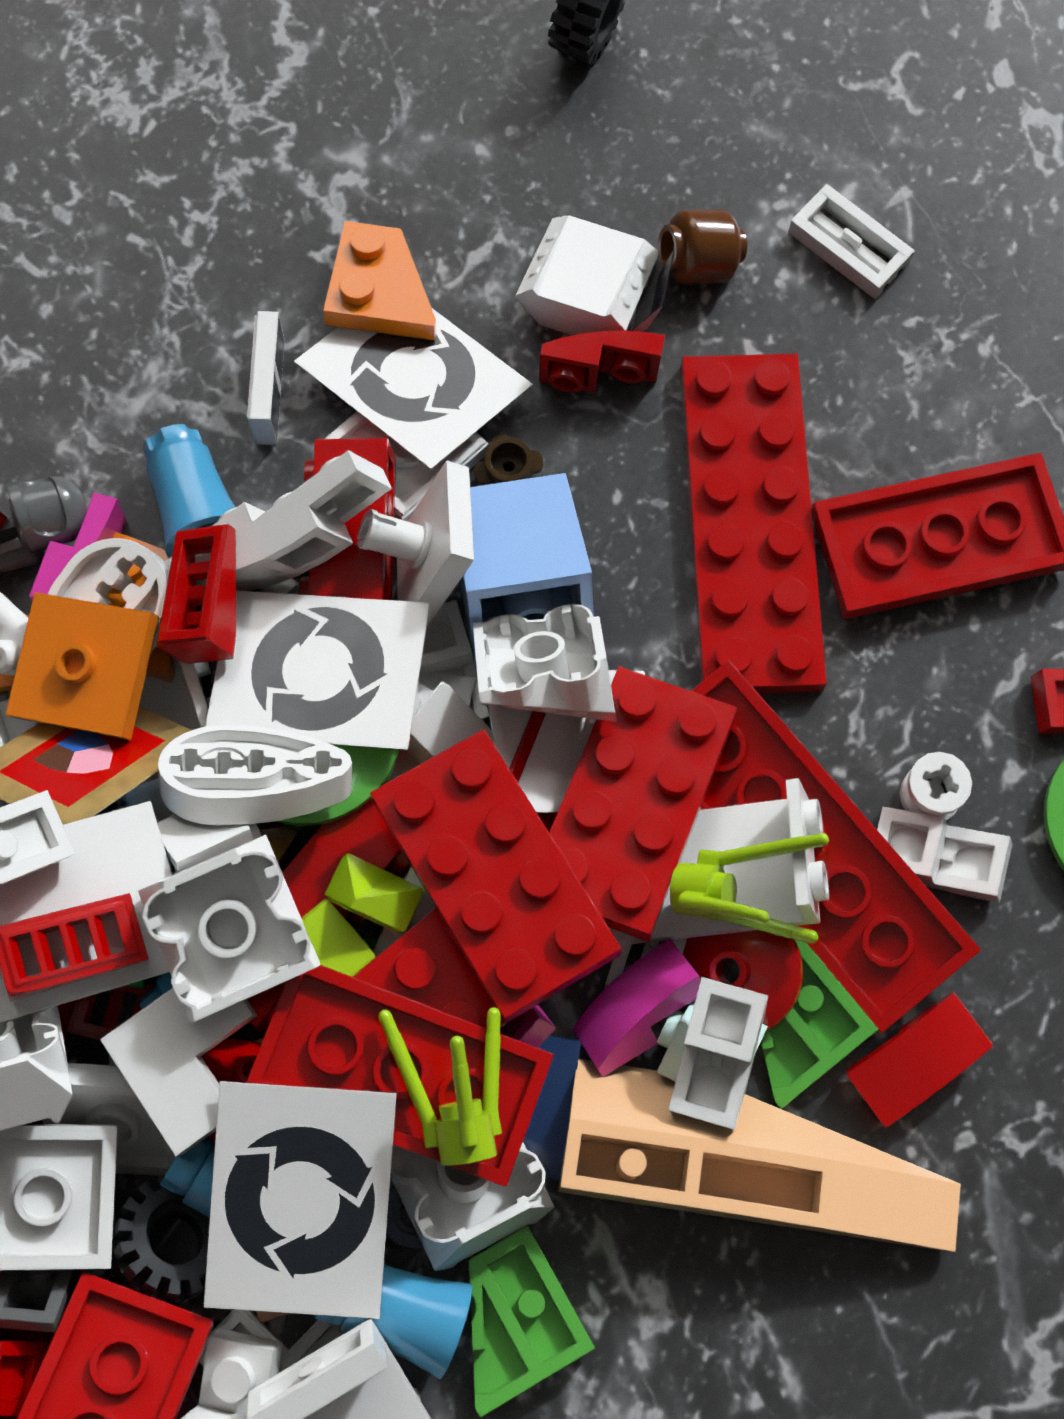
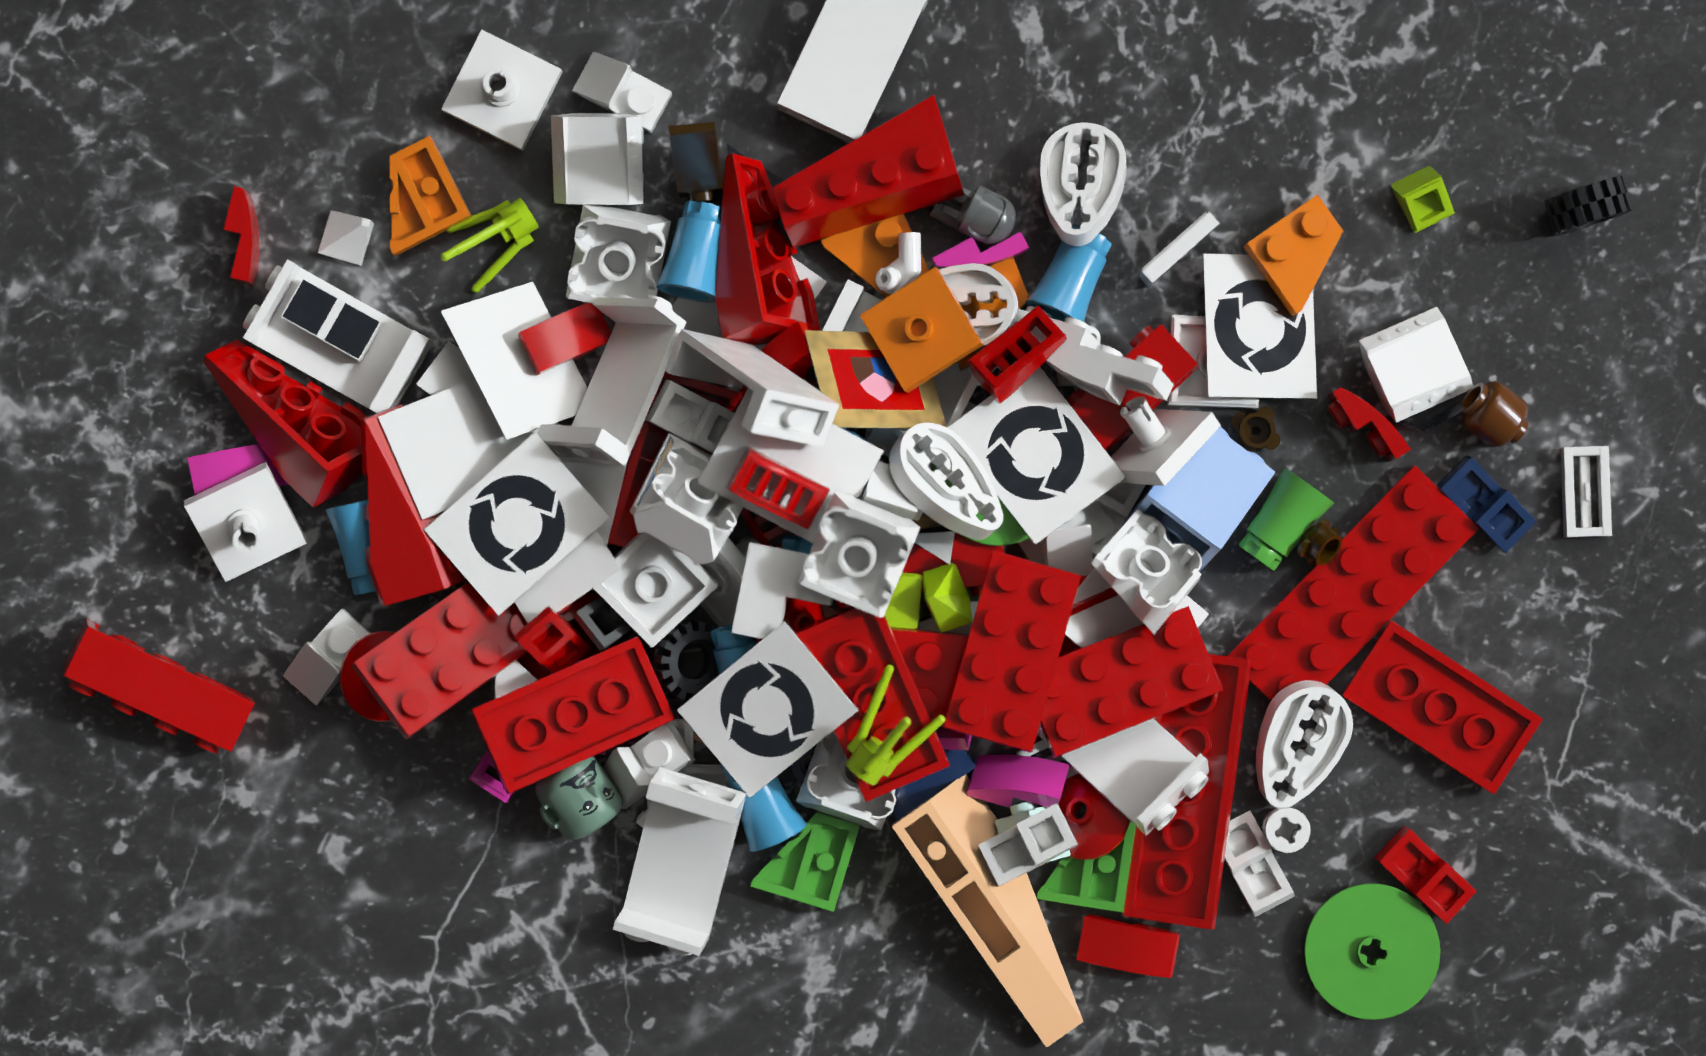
camera: 50 degrees right, 15 degrees up
(104, 427) = (1060, 176): none -> white piece
(311, 850) = (937, 543): none -> white sticker
(443, 144) = (1423, 198): none -> lime slope
(618, 508) = (1284, 519): none -> bright green plant
(675, 497) = (1320, 543): none -> dark brown plate
(711, 893) = (1107, 766): lime plant -> none
(794, 326) = (1486, 503): none -> dark blue slope
(827, 697) = (1279, 728): none -> white piece

